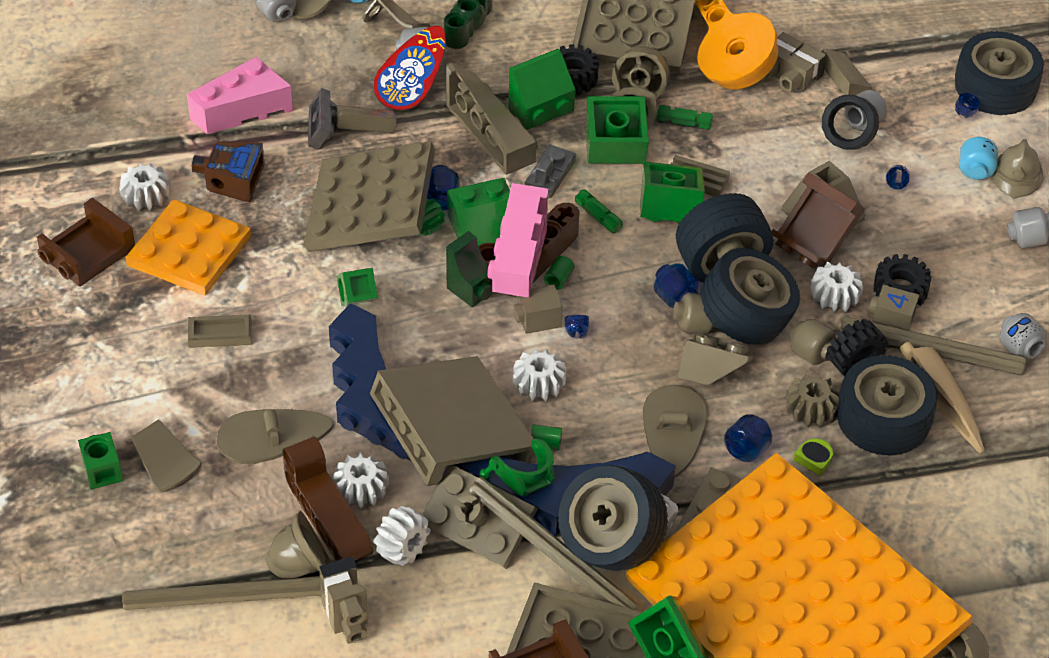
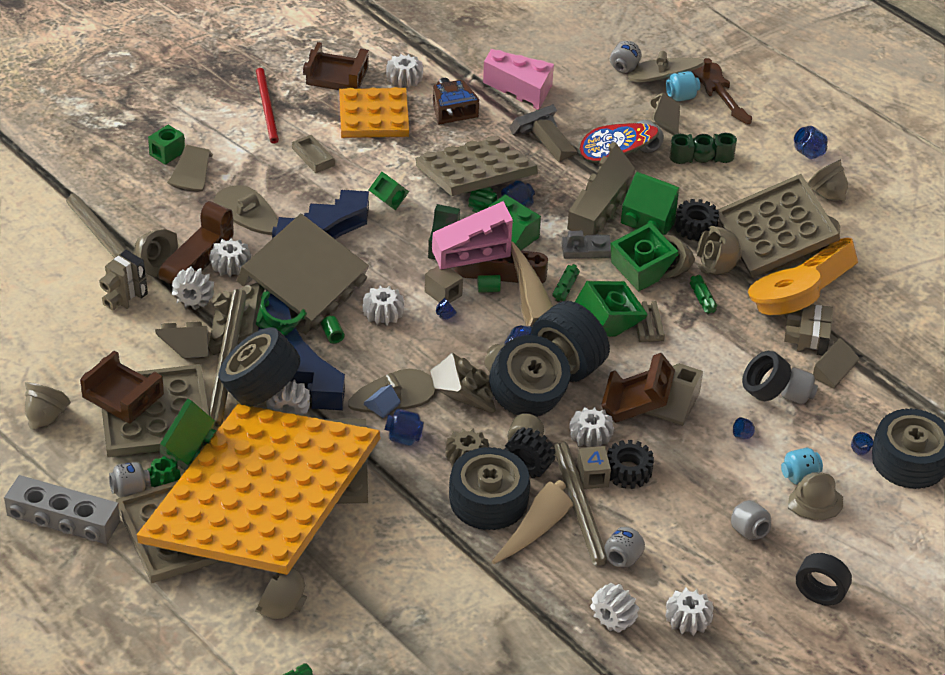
camera: 60 degrees right, 5 degrees down
(94, 336) = (267, 106): none -> red piece
(480, 577) = (186, 341): none -> dark tan slope
(614, 244) = (533, 294): none -> tan piece
(690, 440) = (383, 401): none -> medium blue slope
(814, 455) = (420, 471): tile -> none

